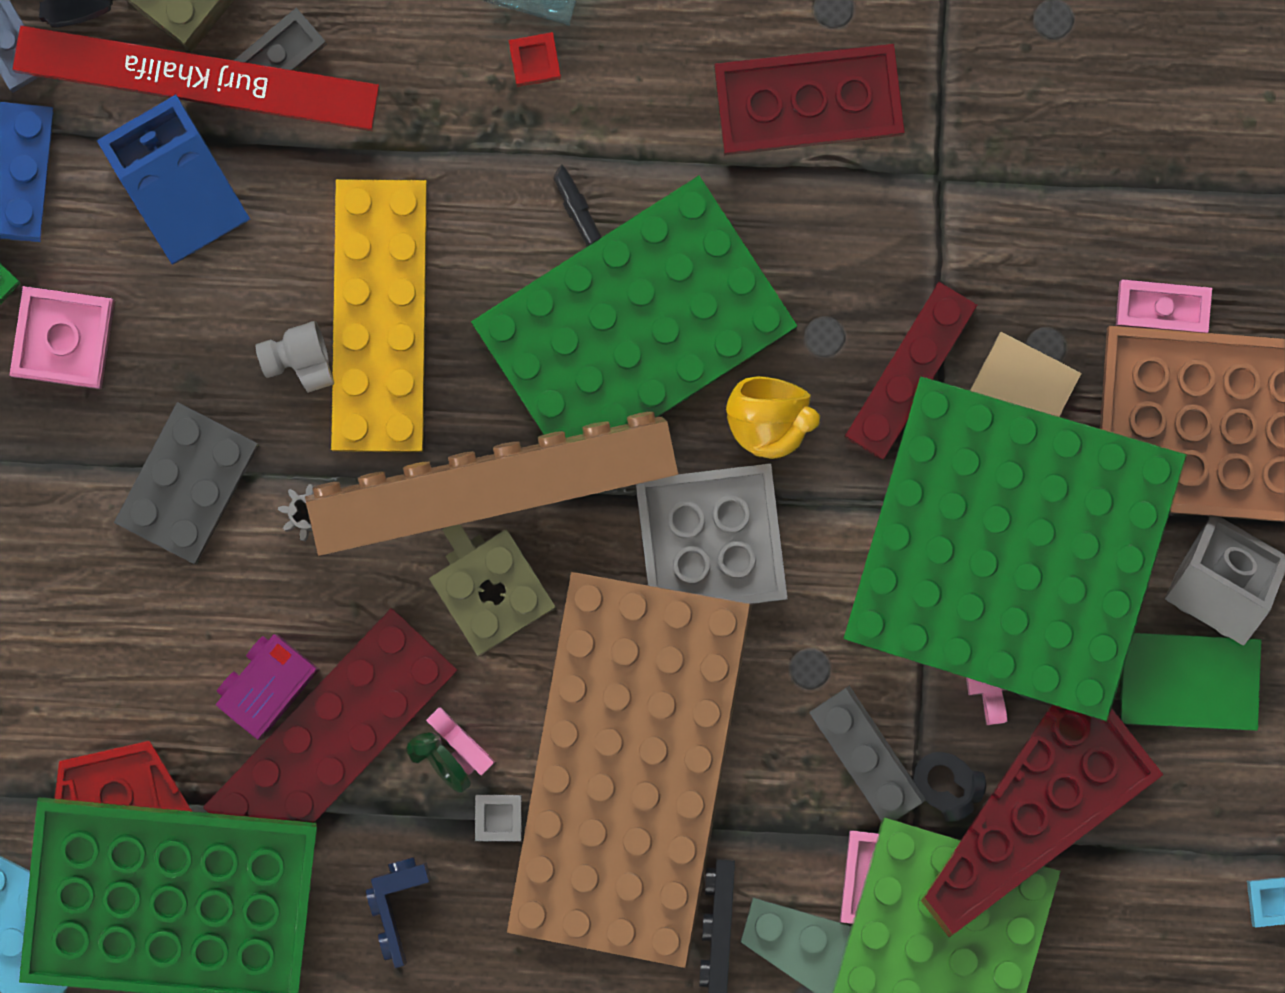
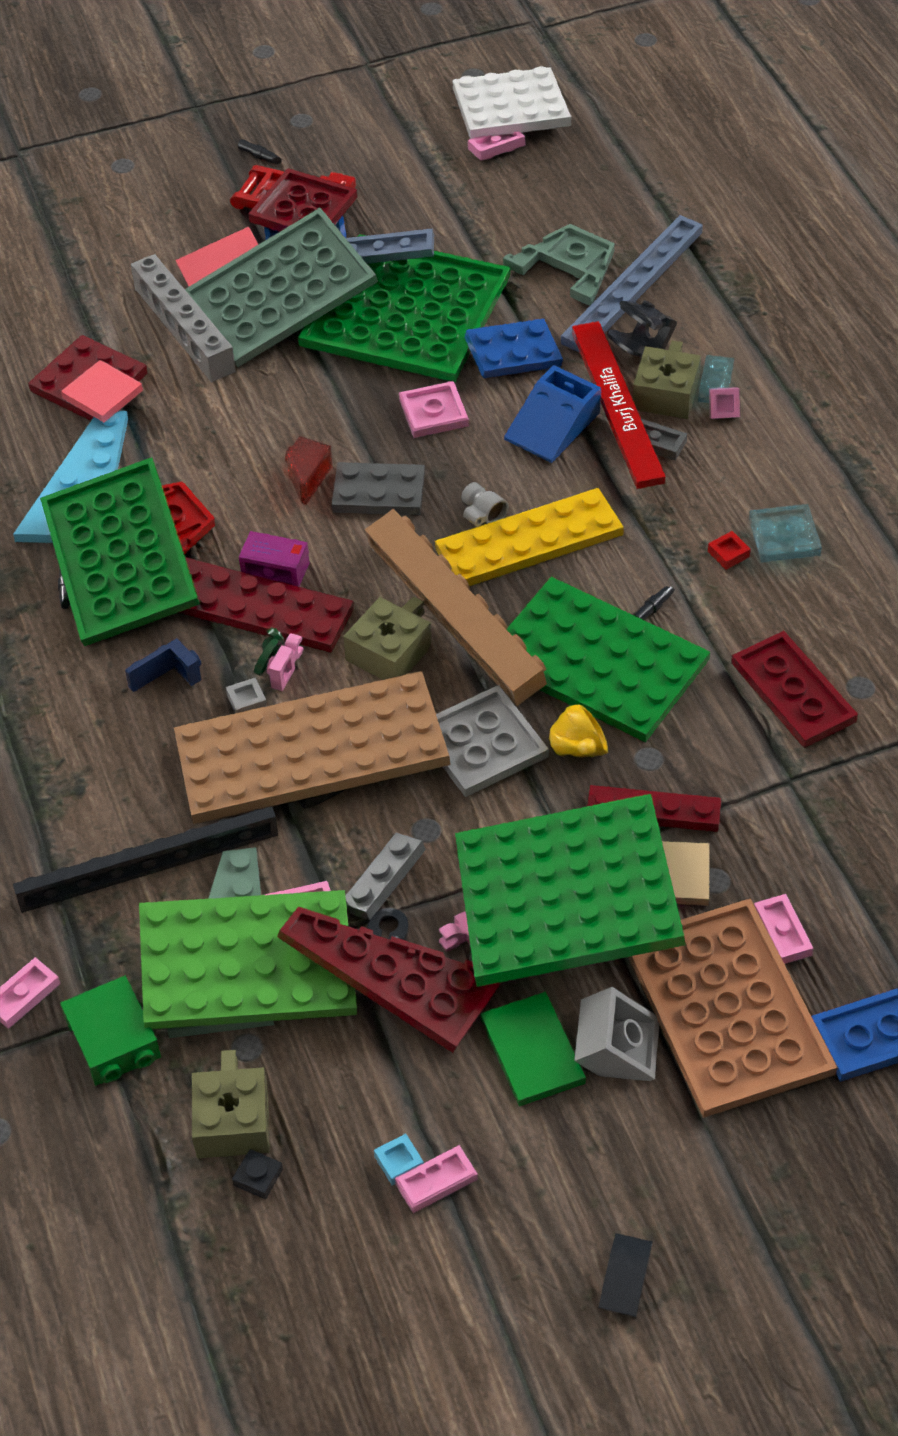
camera: 70 degrees right, 35 degrees down
(105, 571) = (308, 466): none -> clear red slope

